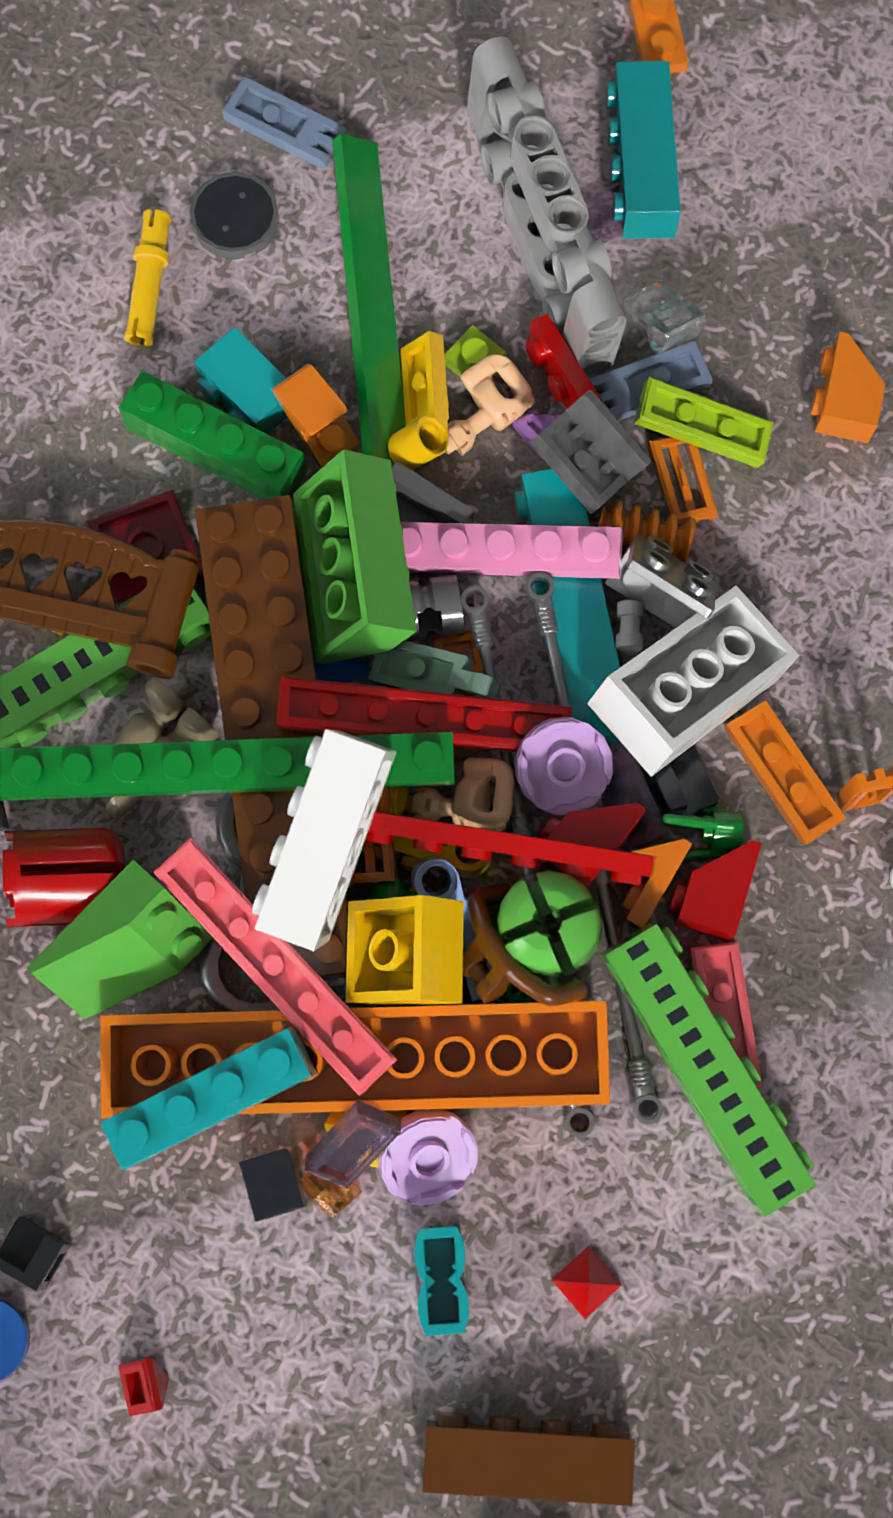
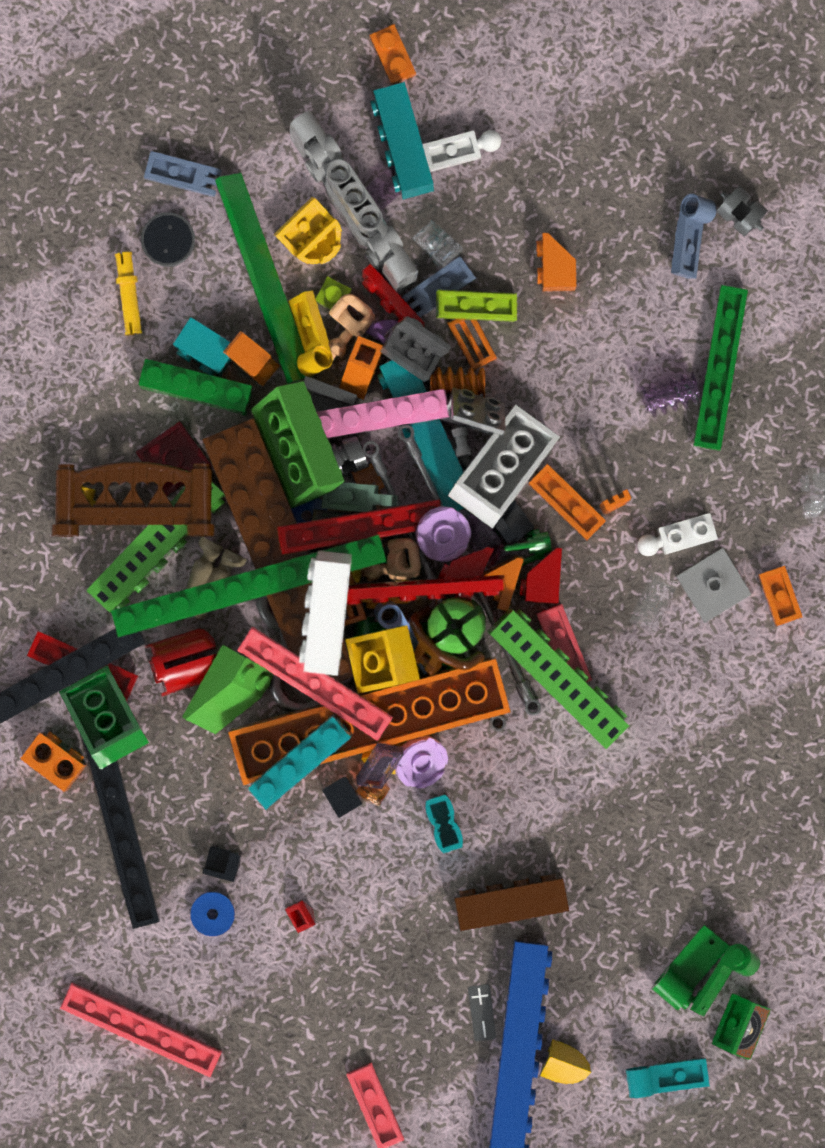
camera: 15 degrees left, 10 degrees up
(463, 256) = (311, 234): none -> yellow slope
(494, 468) = (361, 367): none -> orange slope
(586, 1282) = (521, 805): red slope -> none
(733, 185) = (459, 149): none -> white plate

